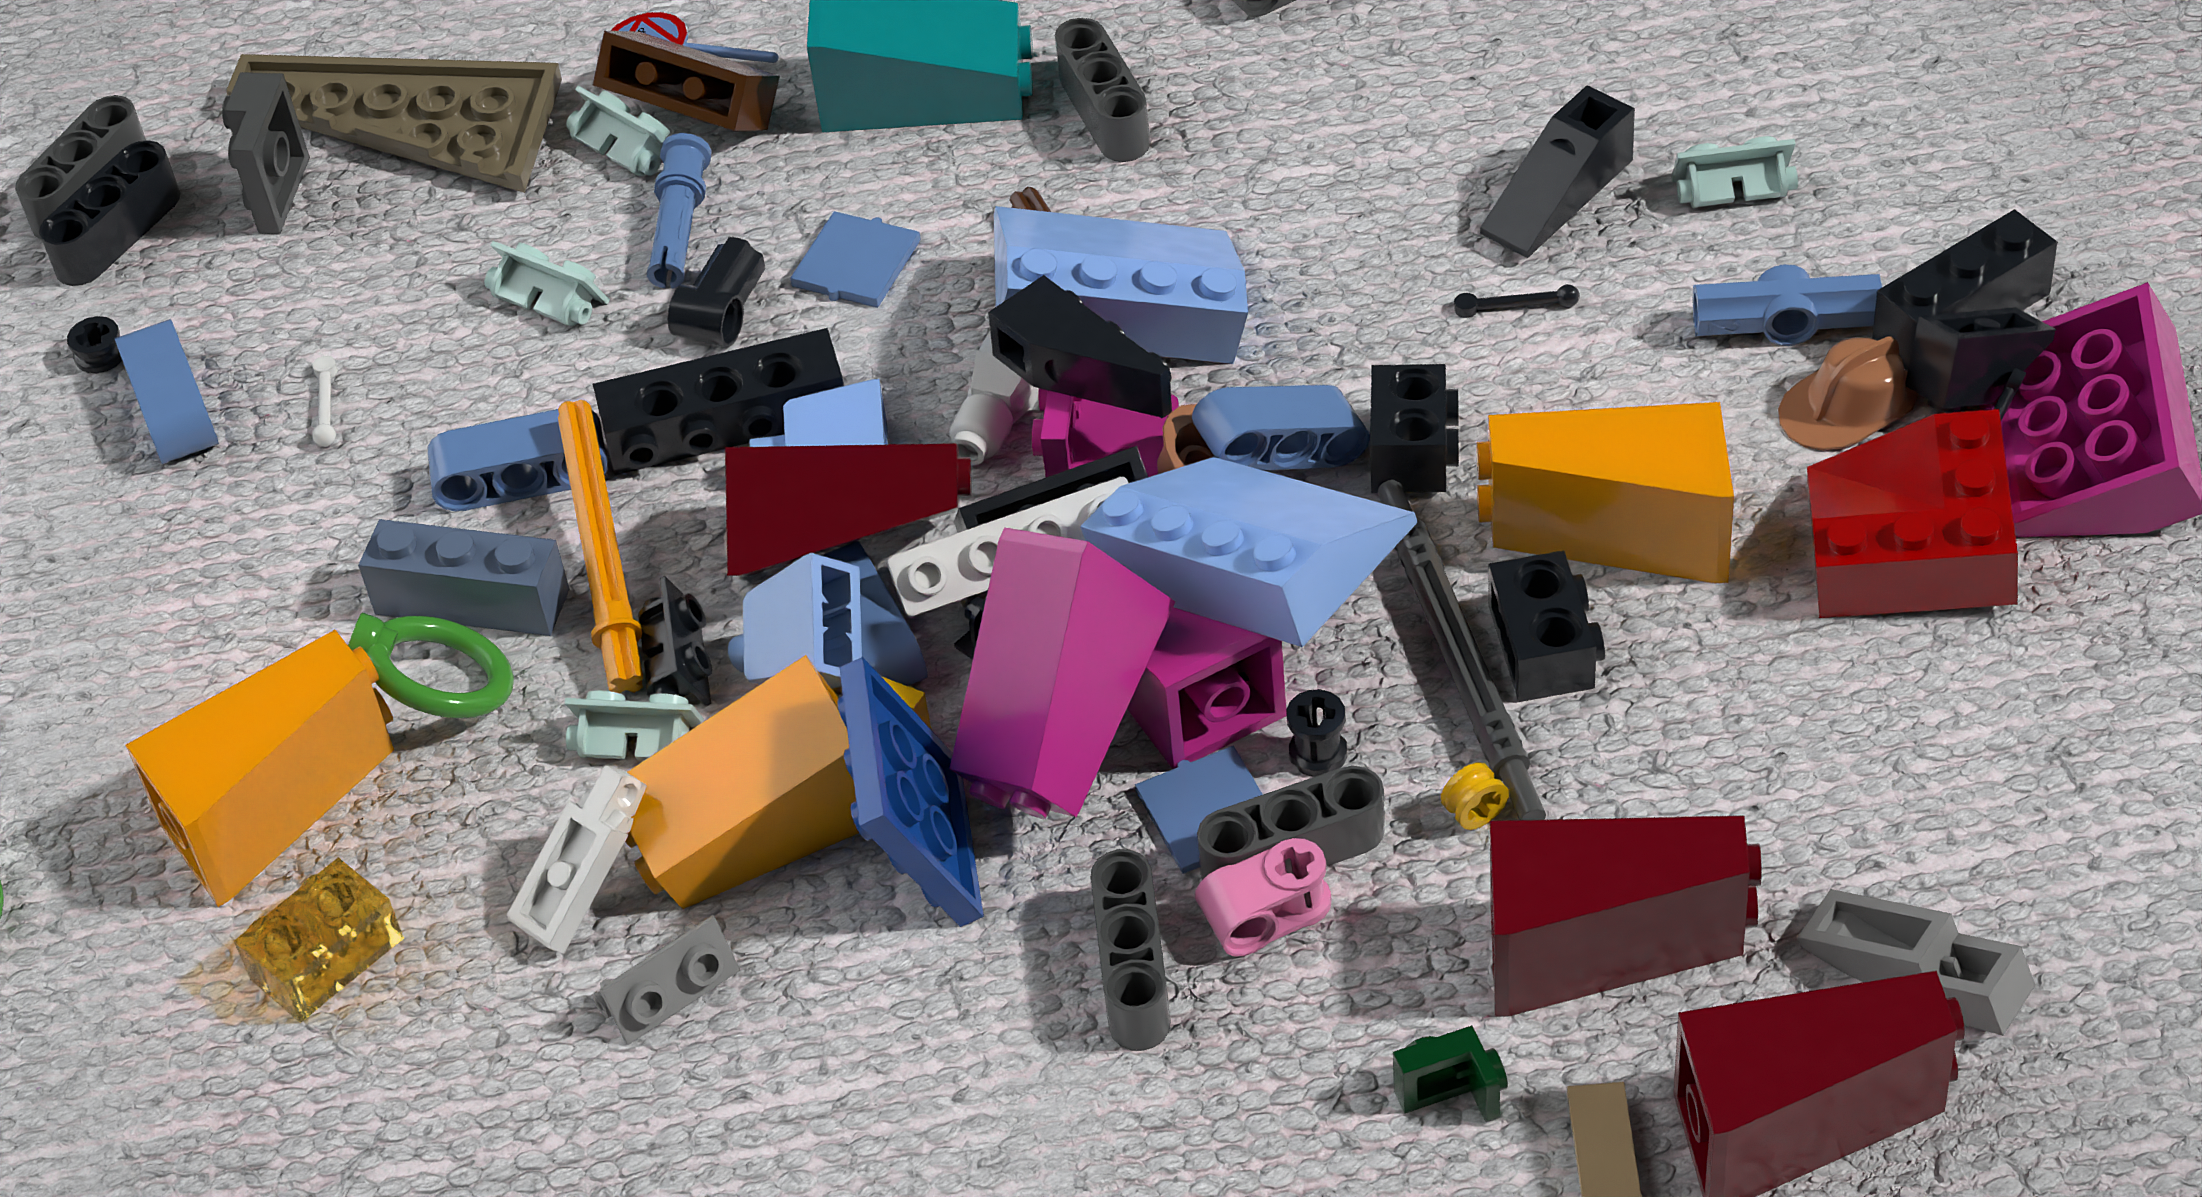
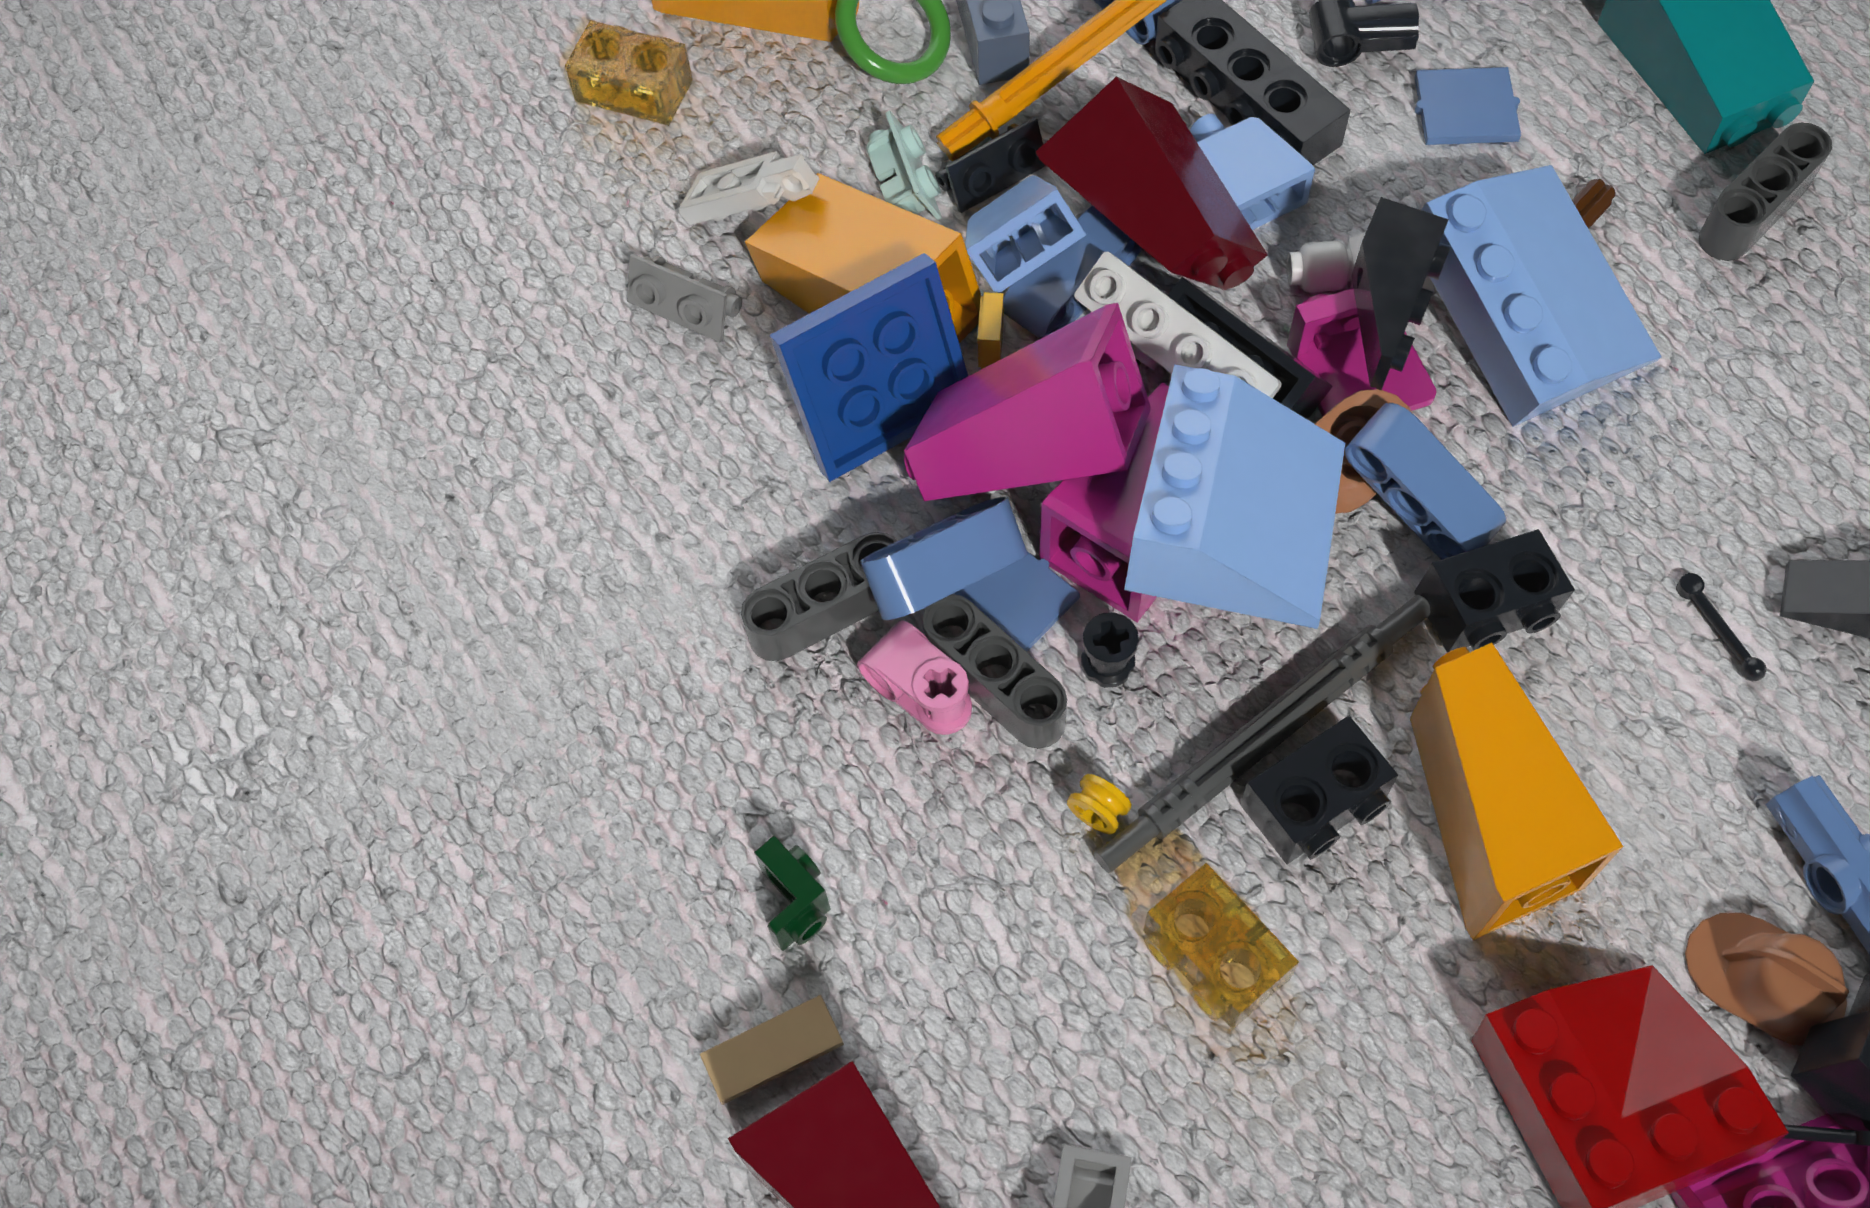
camera: 65 degrees right, 15 degrees up
(1158, 813) = (944, 558): none -> medium blue beam
(1614, 903) = (997, 953): dark red slope -> none
(1660, 751) = (1233, 937): none -> clear yellow brick

